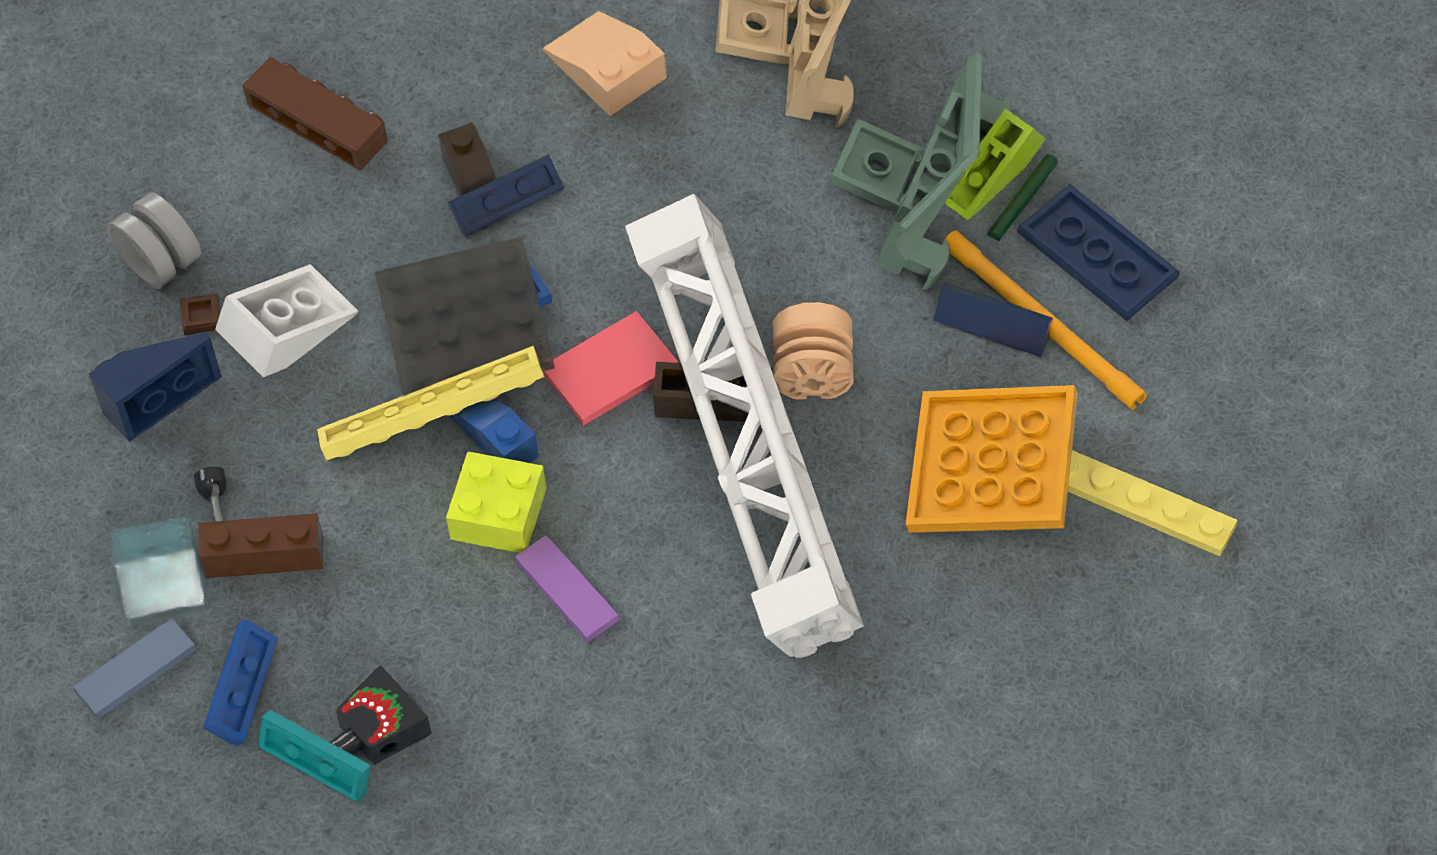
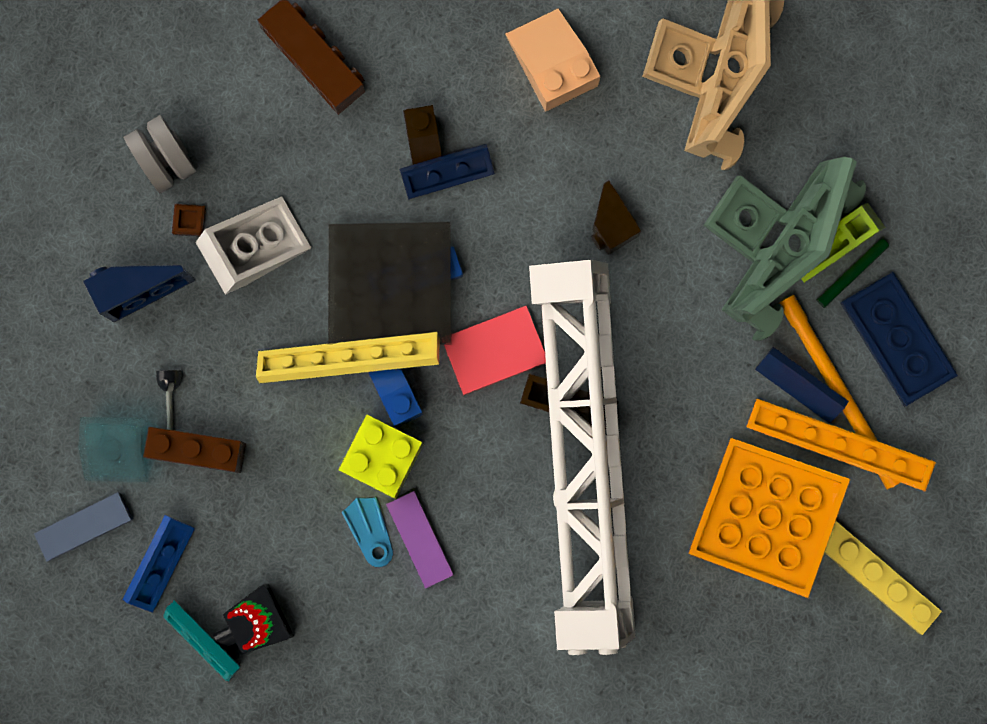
camera: 10 degrees right, 25 degrees up
(500, 594) = (369, 529): none -> dark azure piece
(723, 197) = (613, 222): none -> dark brown slope
(813, 351) = (653, 389): light nougat wheel -> none
(1058, 367) = (841, 444): none -> light orange tile

